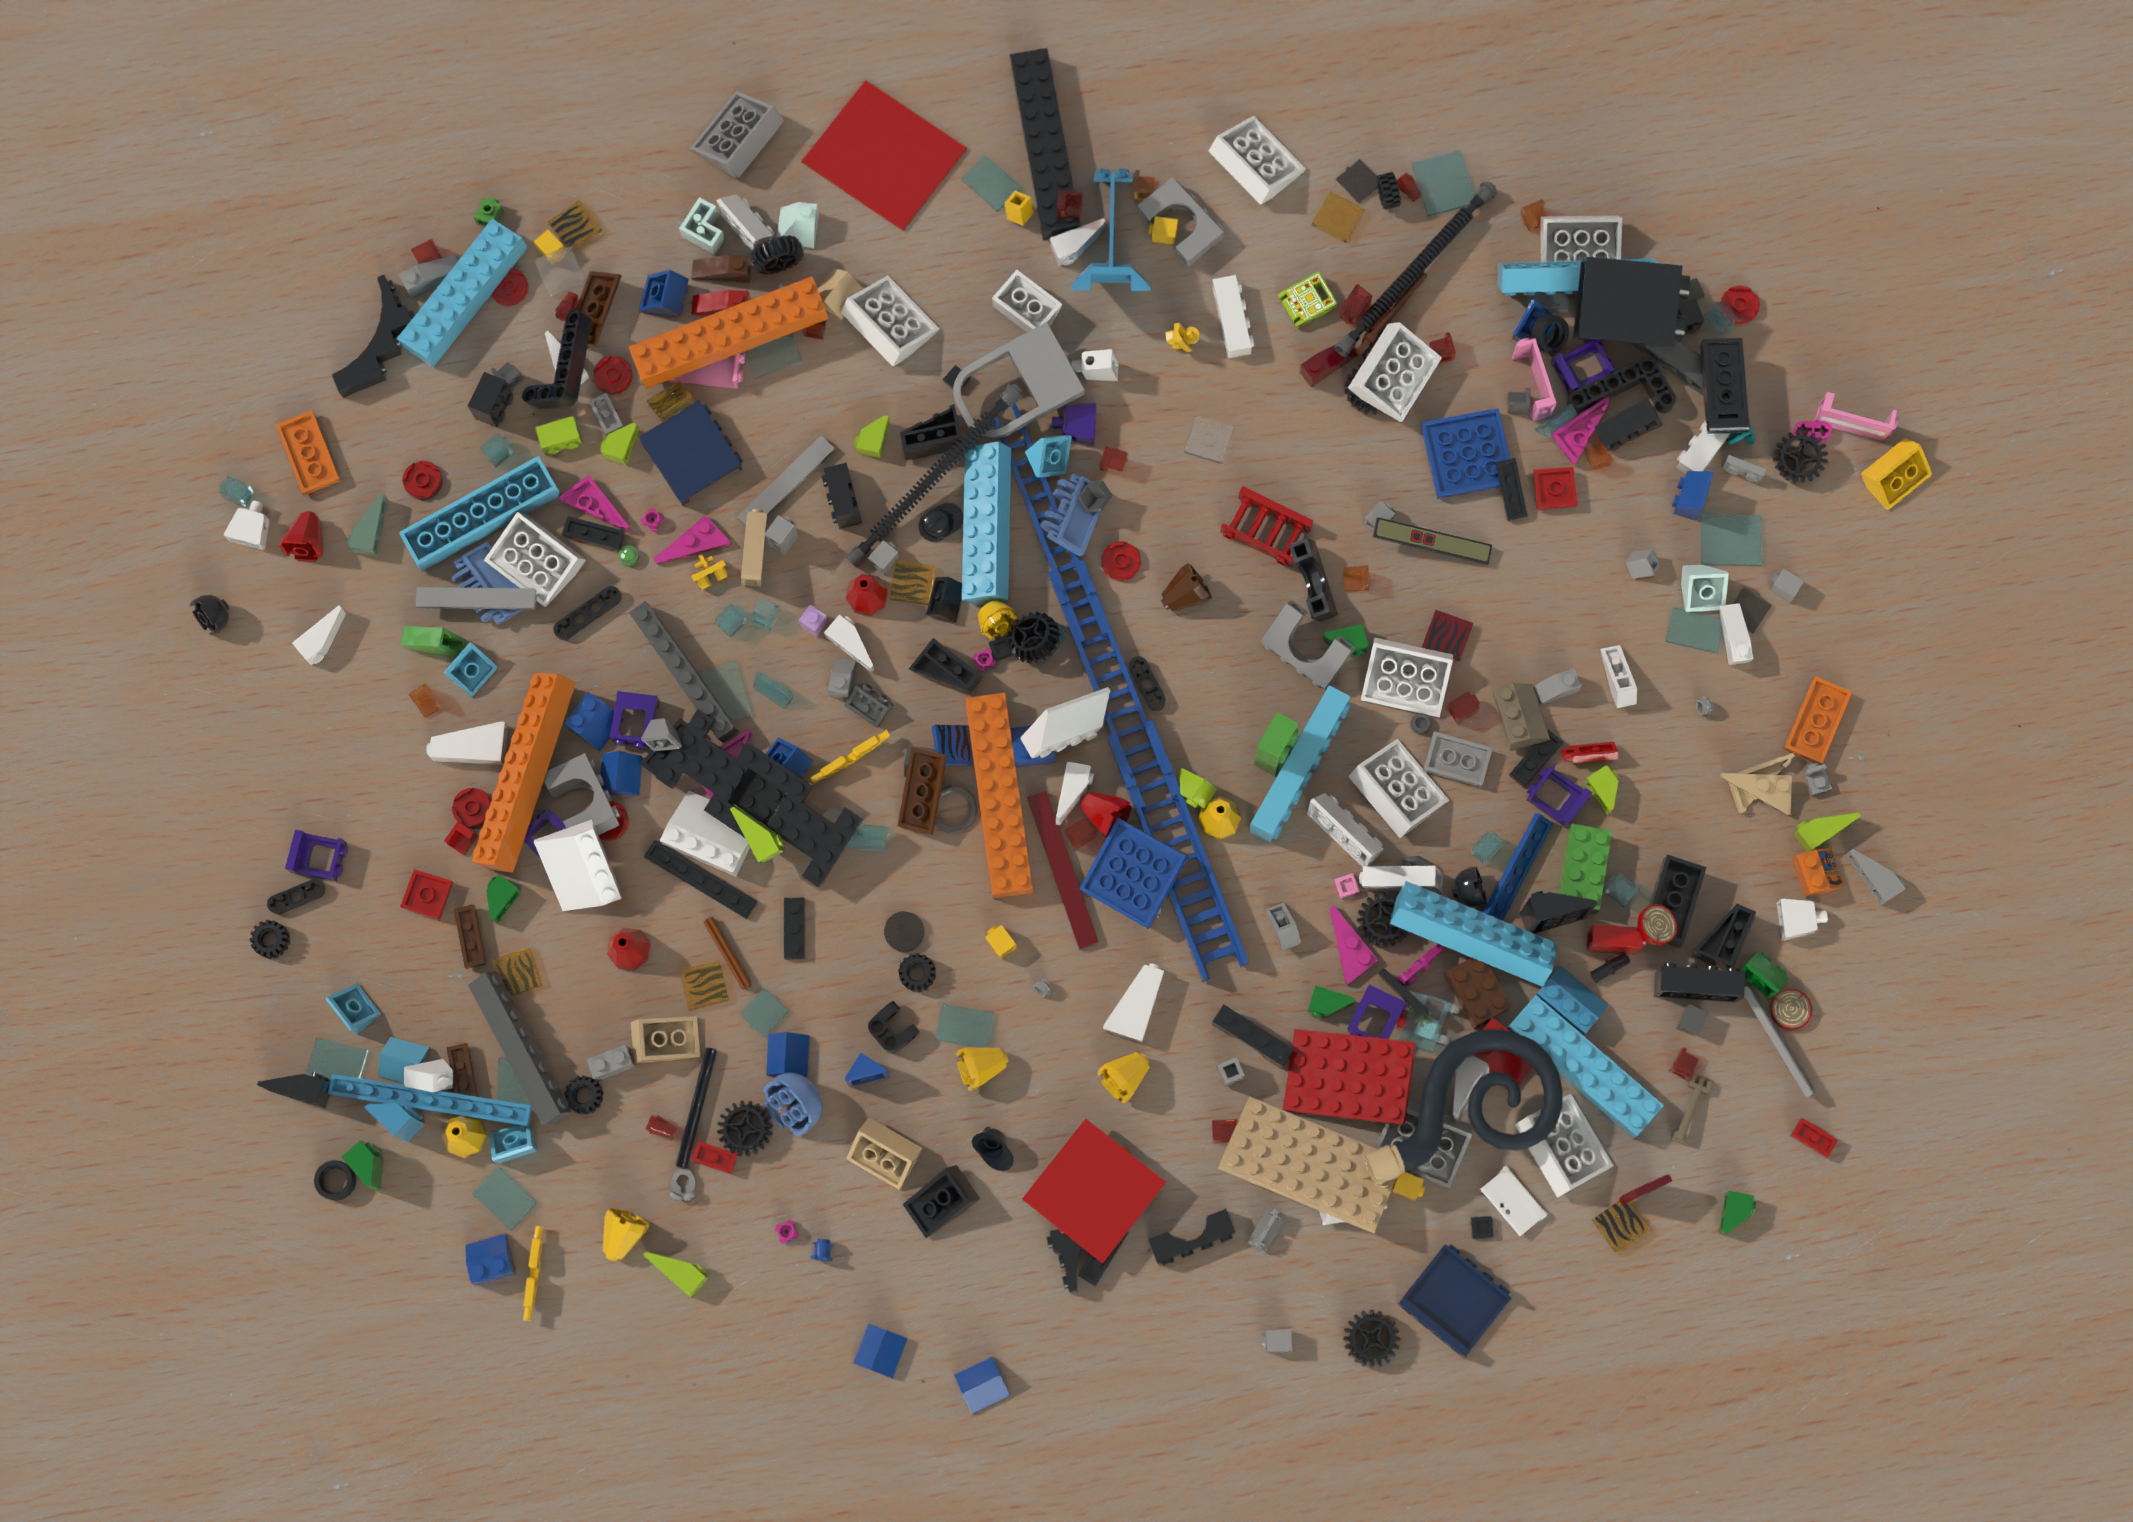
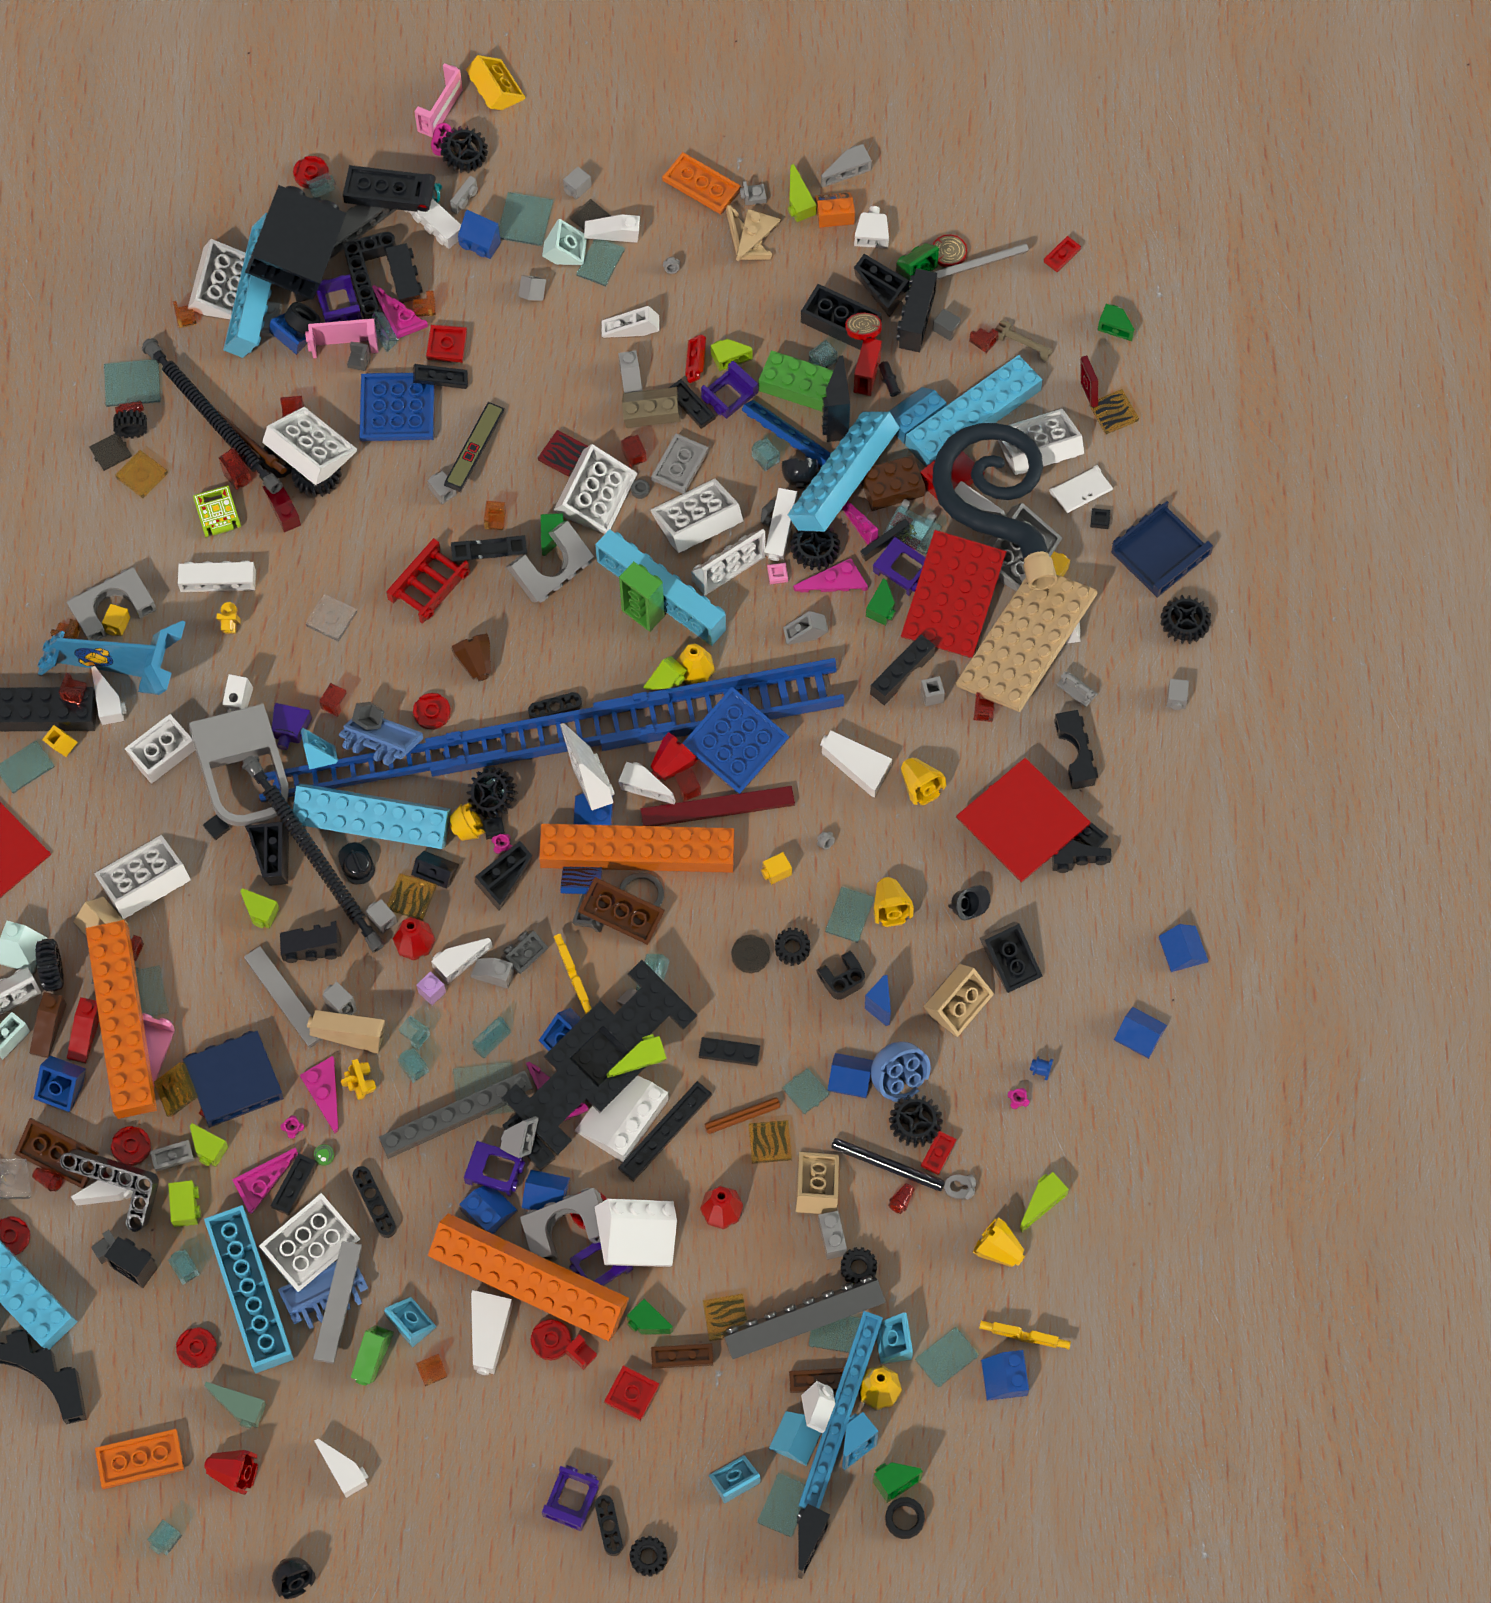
camera: 85 degrees left, 10 degrees down
(249, 527) = (206, 1528): white torso -> none
(1256, 159) = (67, 531): white slope -> none

